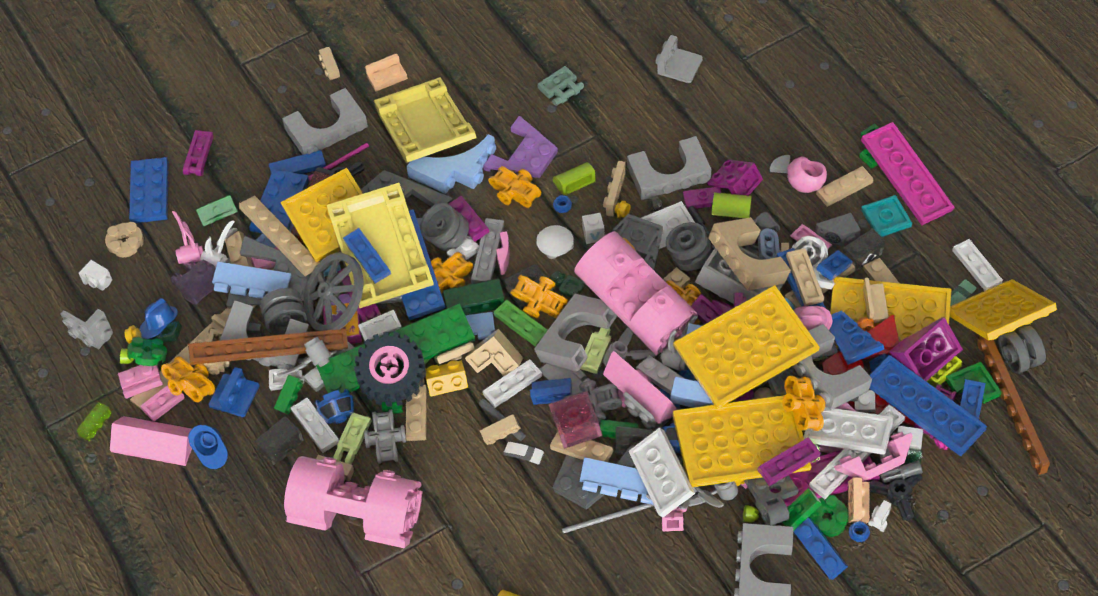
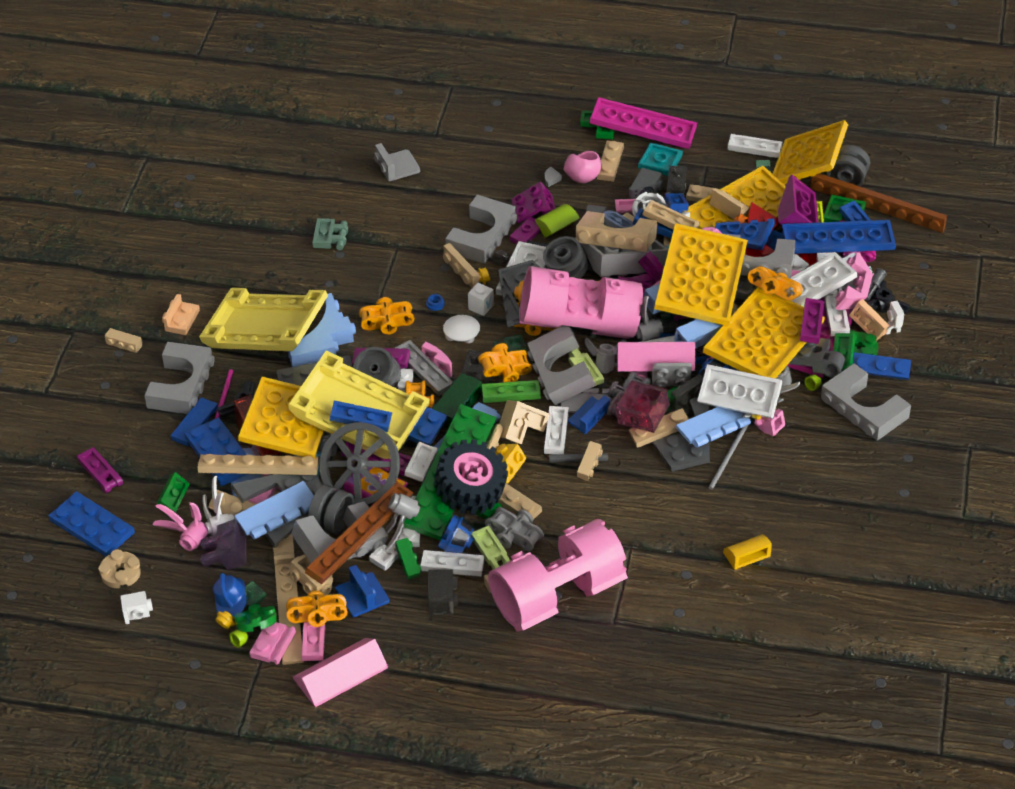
camera: 50 degrees left, 10 degrees down
(92, 332) = (183, 642): light grey bracket -> none
(94, 421) = (276, 697): clear neon green piece -> none
(208, 446) = (396, 635): blue piece -> none
(523, 452) = (619, 465): white sticker -> none
(532, 154) = (365, 288): medium lavender wing -> none
(575, 178) = (422, 280): lime brick -> none
(859, 526) = (889, 339): blue plate -> none

